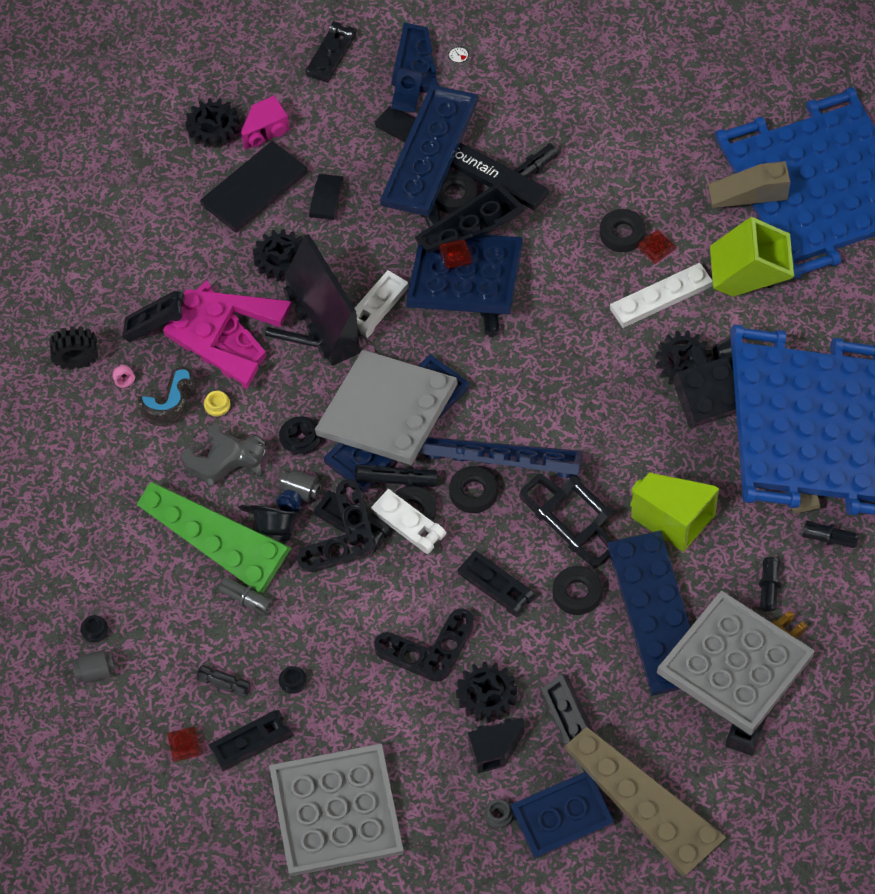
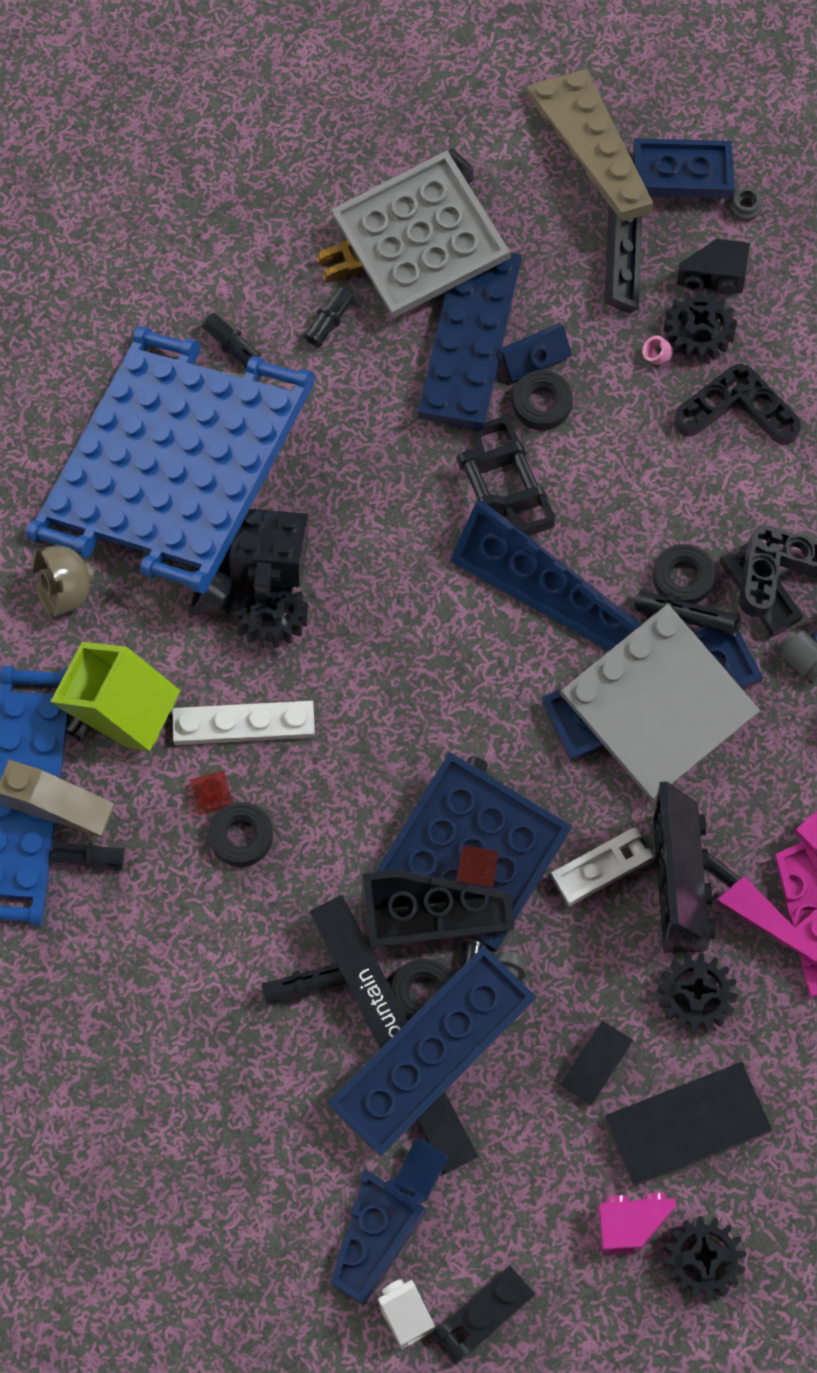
camera: 155 degrees left, 10 degrees up
(289, 433) = (790, 719): black gear -> none
(376, 26) = (405, 1313): none -> white slope
(407, 222) = (514, 963): none -> dark grey plate
(407, 521) = (699, 547): white plate -> none
(458, 57) = (310, 1217): tile -> none
(473, 474) = (607, 549): black tyre -> none
(495, 583) = (630, 444): black plate -> none
(509, 659) = (652, 354): none -> bright pink hinge
(600, 618) = (536, 352): none -> dark blue plate
(673, 507) = (389, 424): lime slope -> none
(701, 181) = (90, 855): none -> black axle
(837, 319) = (63, 579): none -> dark tan cylinder

